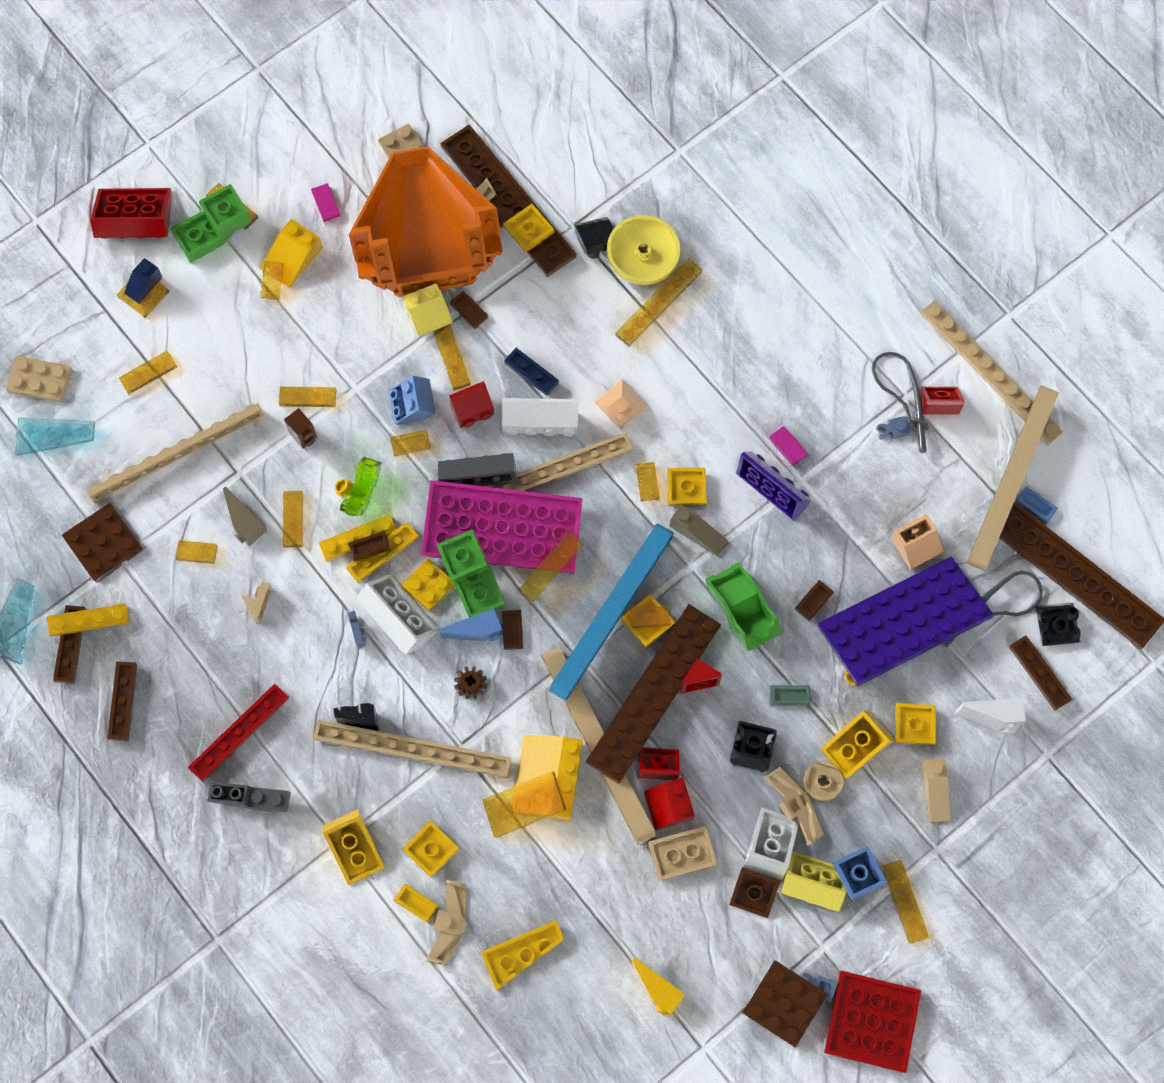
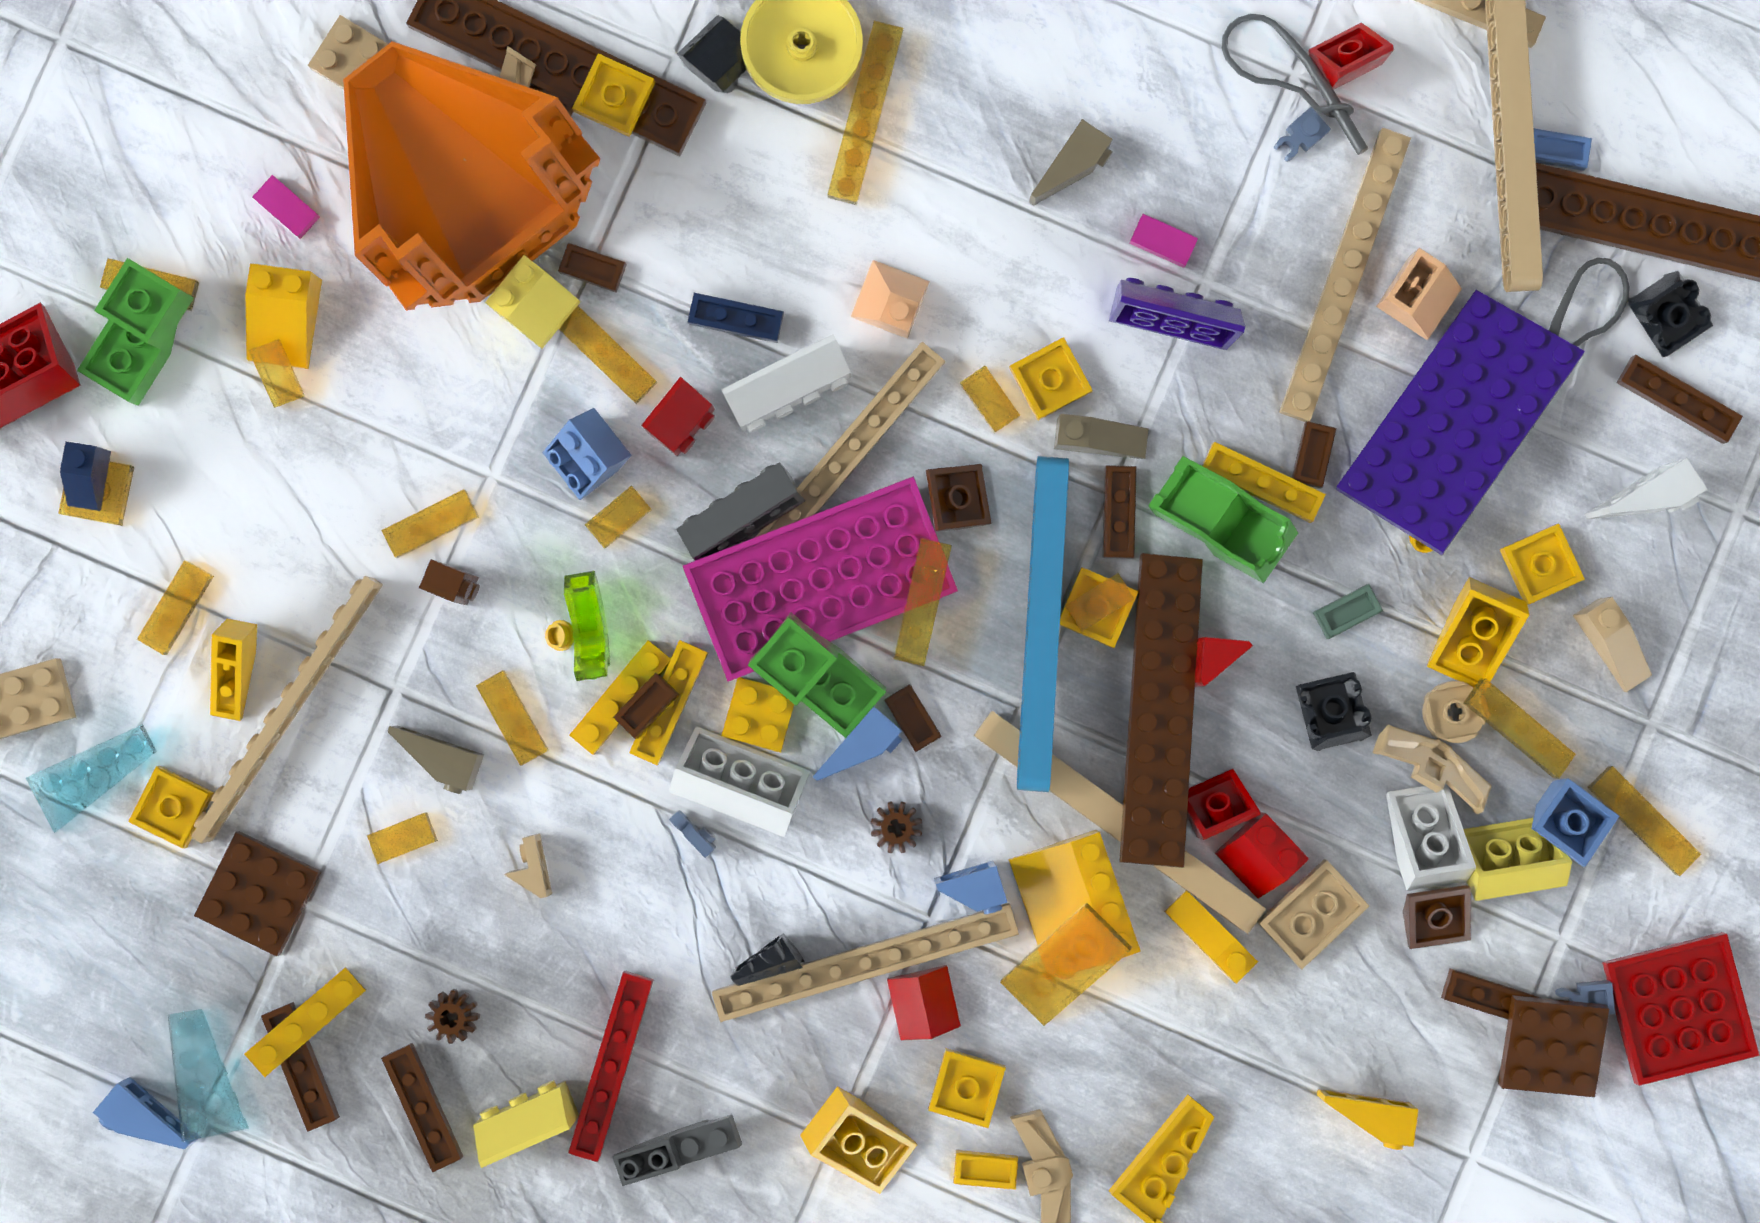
camera: 25 degrees left, 15 degrees up
(83, 472) = (170, 806): none -> yellow tile
(159, 416) = (231, 667): none -> yellow slope
(173, 664) = (451, 1004): none -> reddish brown gear
(174, 736) = (524, 1122): none -> light yellow slope
(433, 789) = (924, 1003): none -> red slope
(496, 734) = (975, 887): none -> medium blue slope
(601, 523) = (958, 497): none -> reddish brown slope
(616, 836) = (1211, 937): none -> yellow slope
(688, 577) = (1119, 512): none -> reddish brown tile
(756, 951) = (1480, 993): none -> reddish brown tile
(760, 380) = (1076, 160): none -> dark tan slope
(778, 601) = (1264, 482): none -> yellow plate
(856, 808) = (1519, 728): none -> clear yellow tile
(880, 513) = (1345, 275): none -> tan plate

